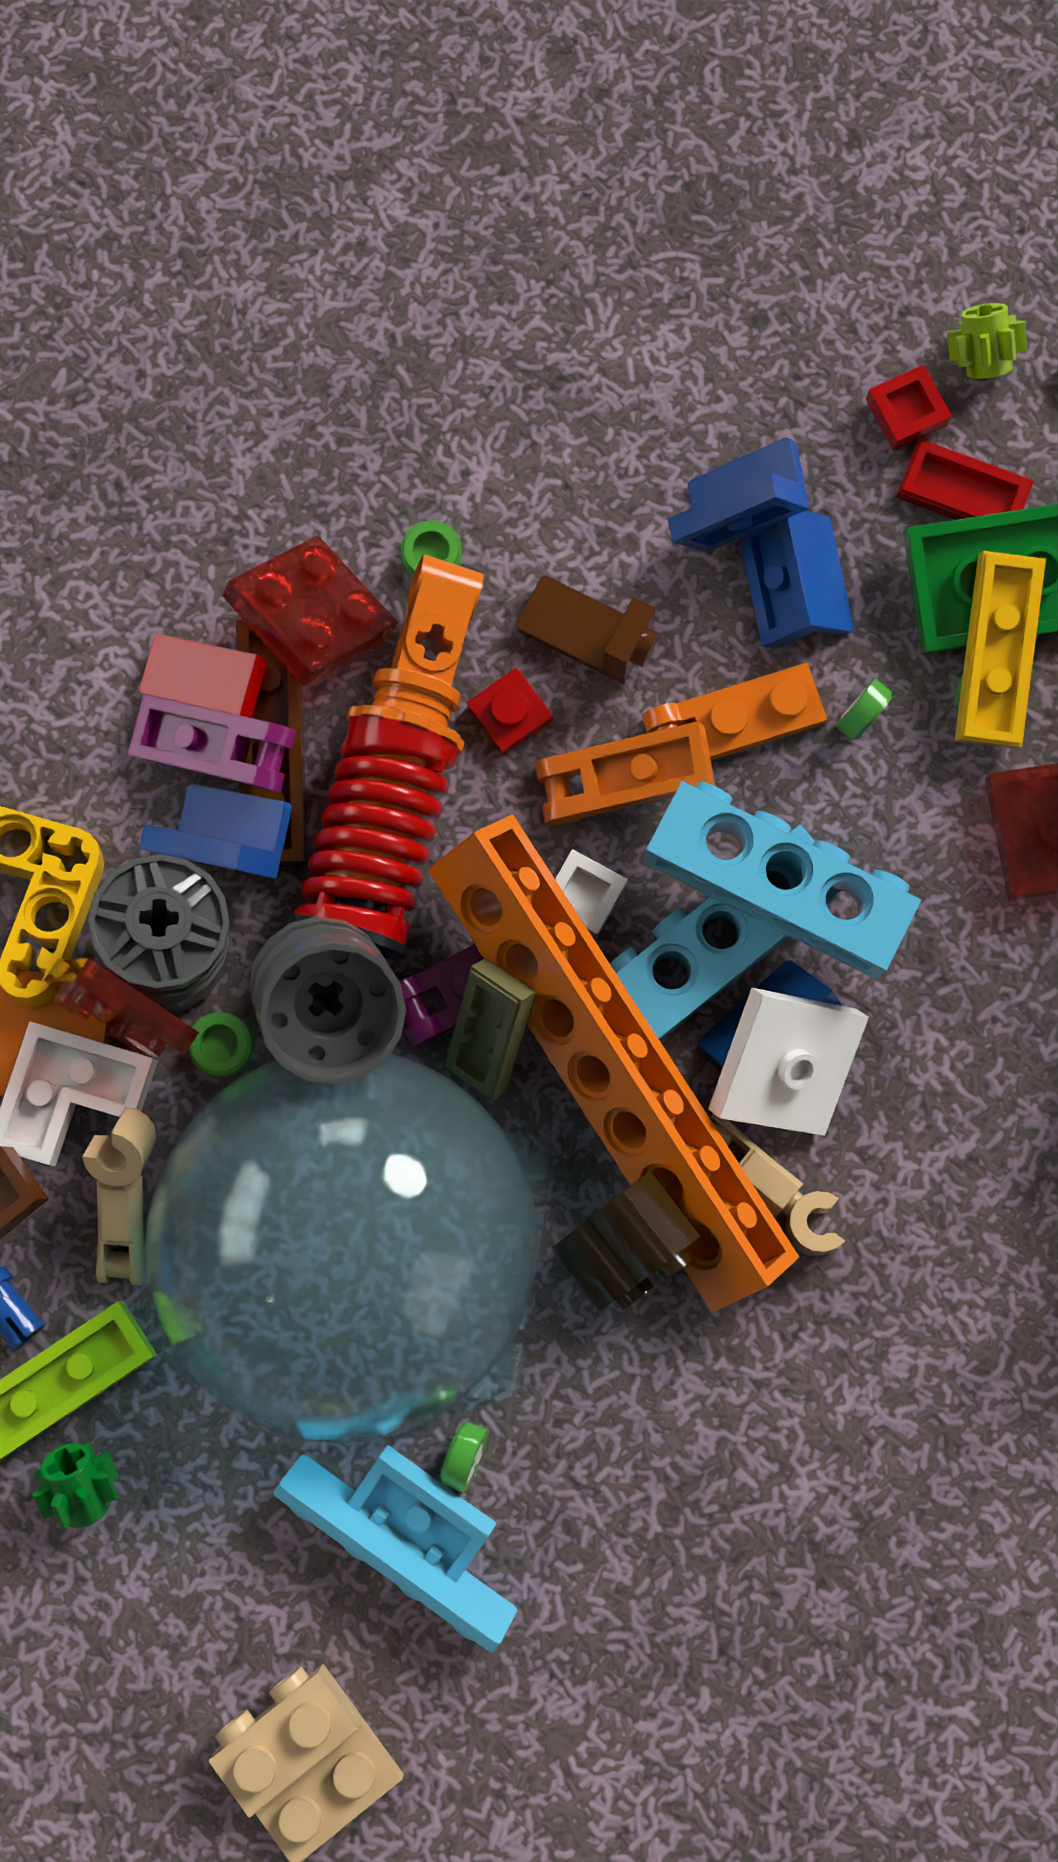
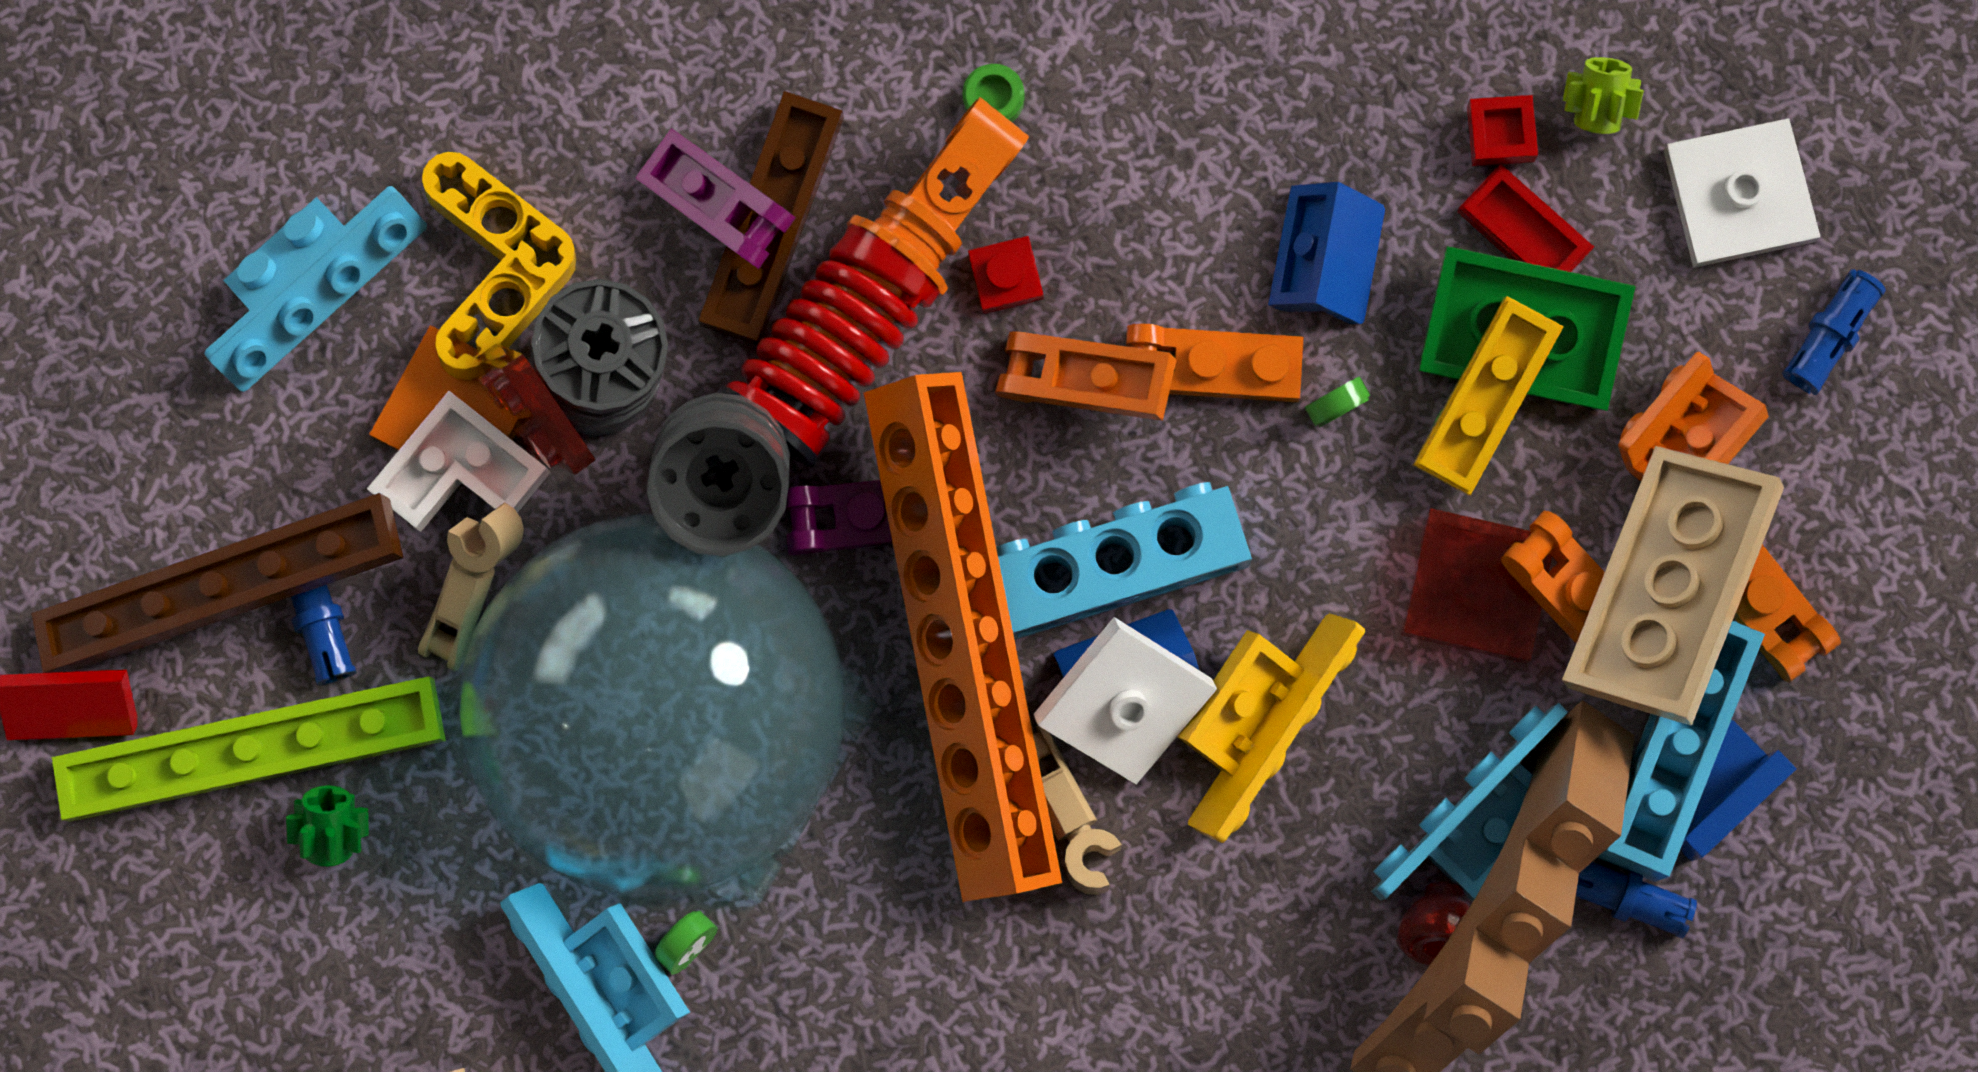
camera: 25 degrees right, 0 degrees up
(203, 675) = (732, 132): tile -> none
(221, 1045) = (614, 480): bright green tile -> none
(225, 831) = (694, 285): blue panel -> none
(310, 609) = (856, 108): clear red plate -> none
(489, 1028) = (862, 562): olive plate -> none
(589, 629) = (1110, 225): reddish brown bracket -> none
(590, 889) = (1009, 472): white plate -> none
(626, 1243) = (908, 806): dark brown brick -> none
(742, 497) = (1302, 157): blue panel -> none
(800, 912) = (1135, 438): medium azure brick -> none
(916, 1028) = (1258, 713): none -> yellow bracket

